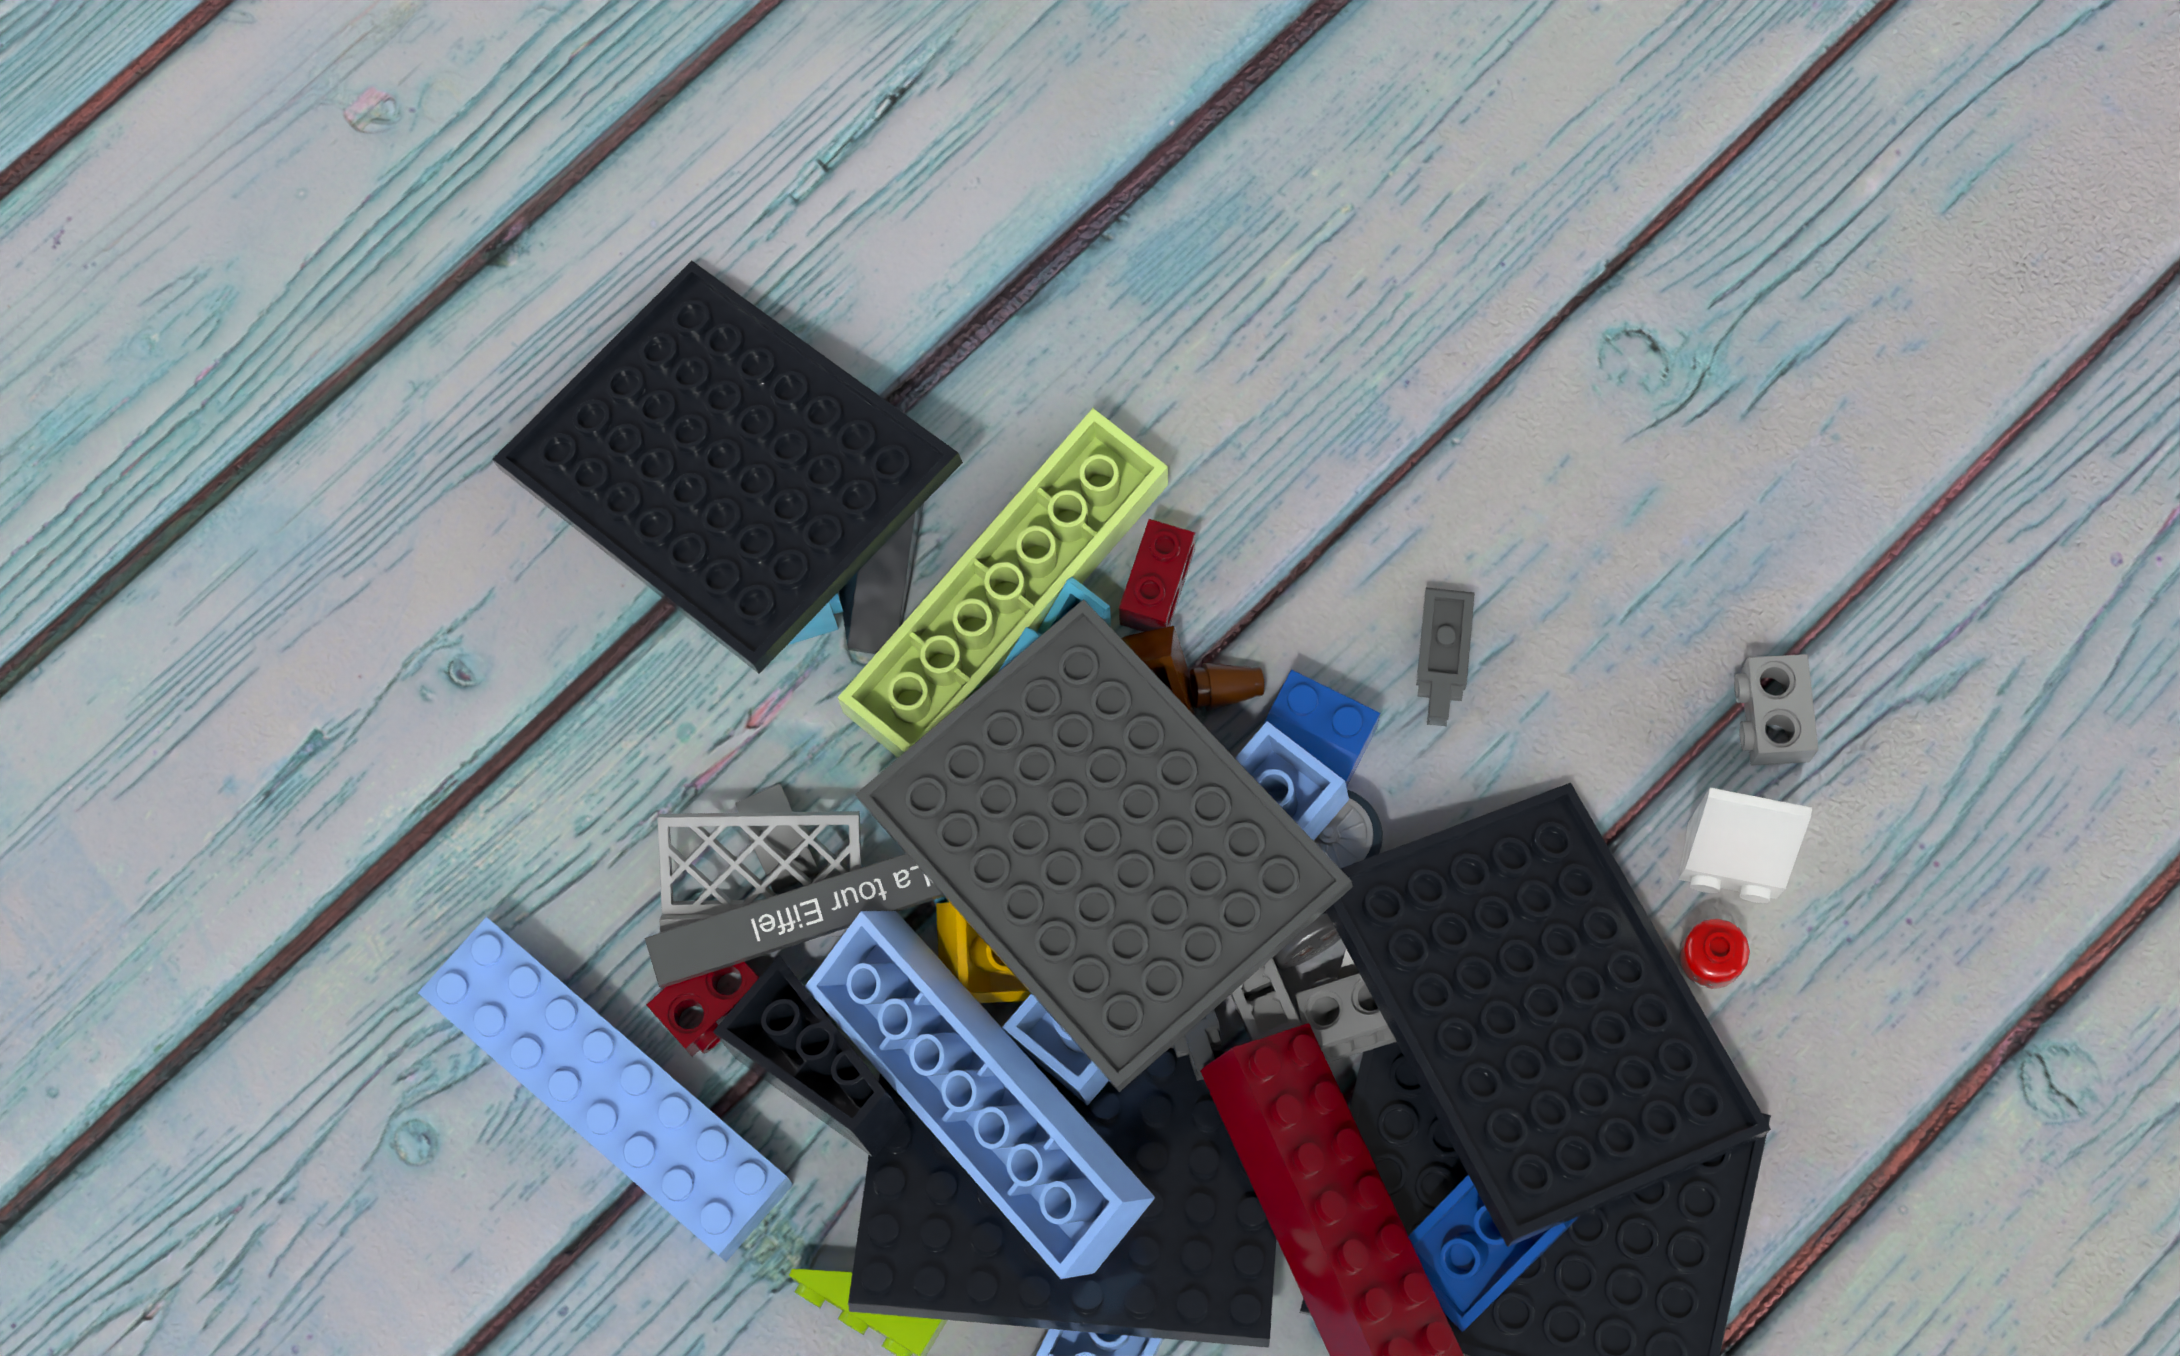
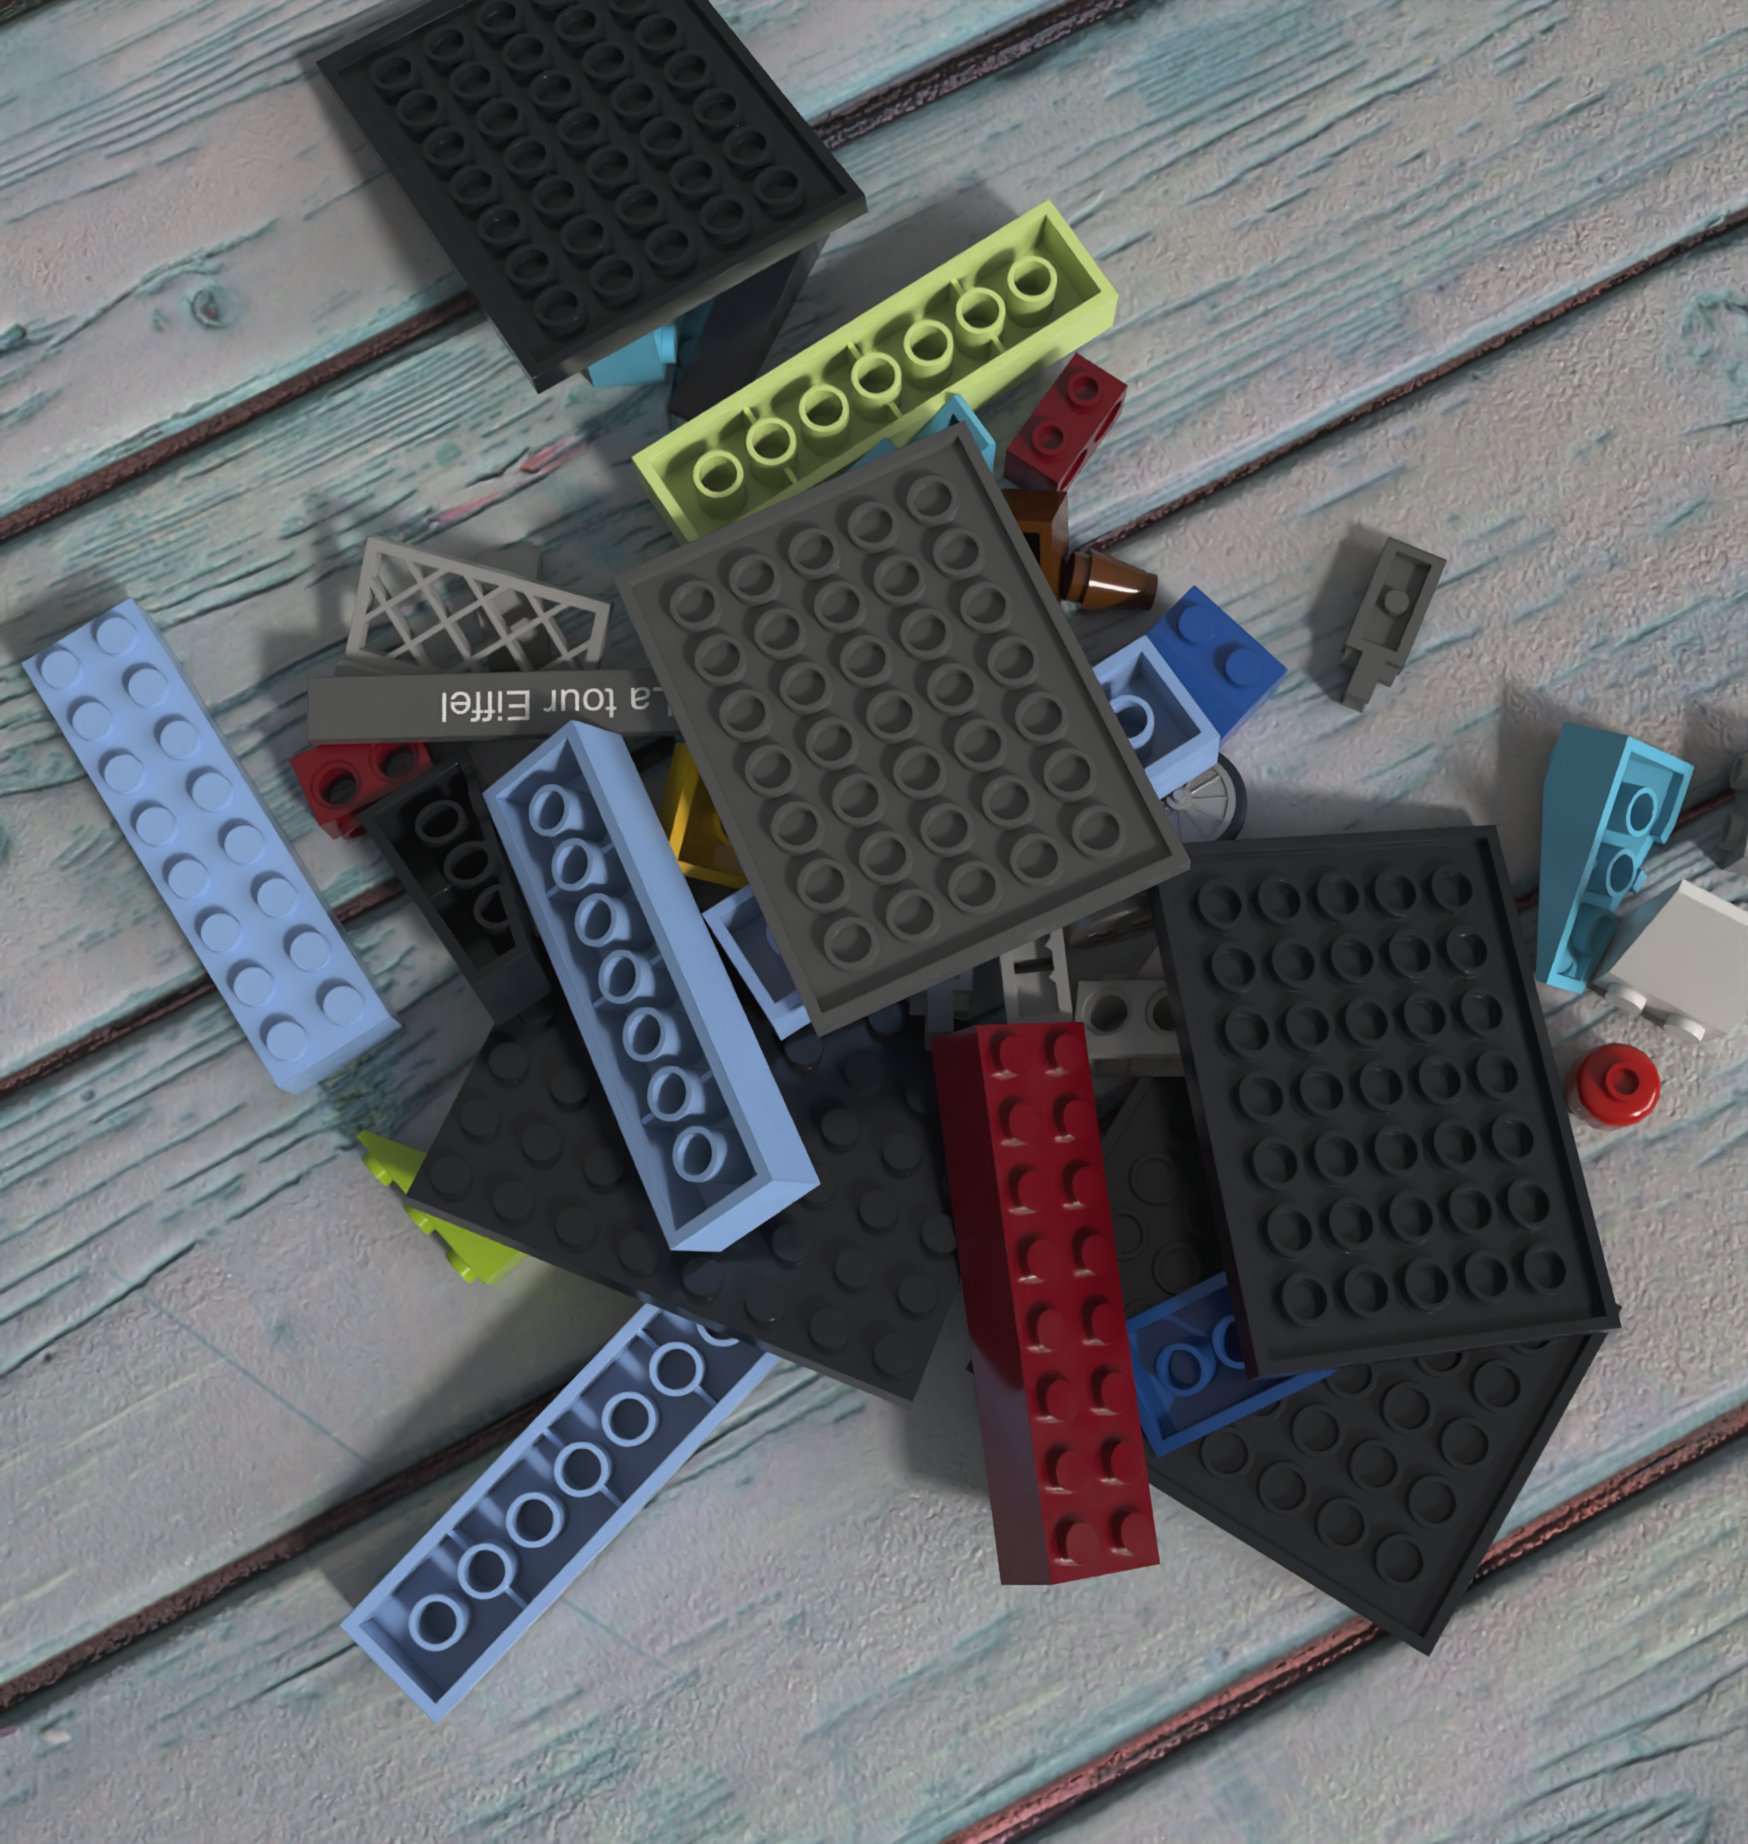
camera: 15 degrees right, 5 degrees up
(1647, 759) = (1599, 819): none -> medium azure wedge

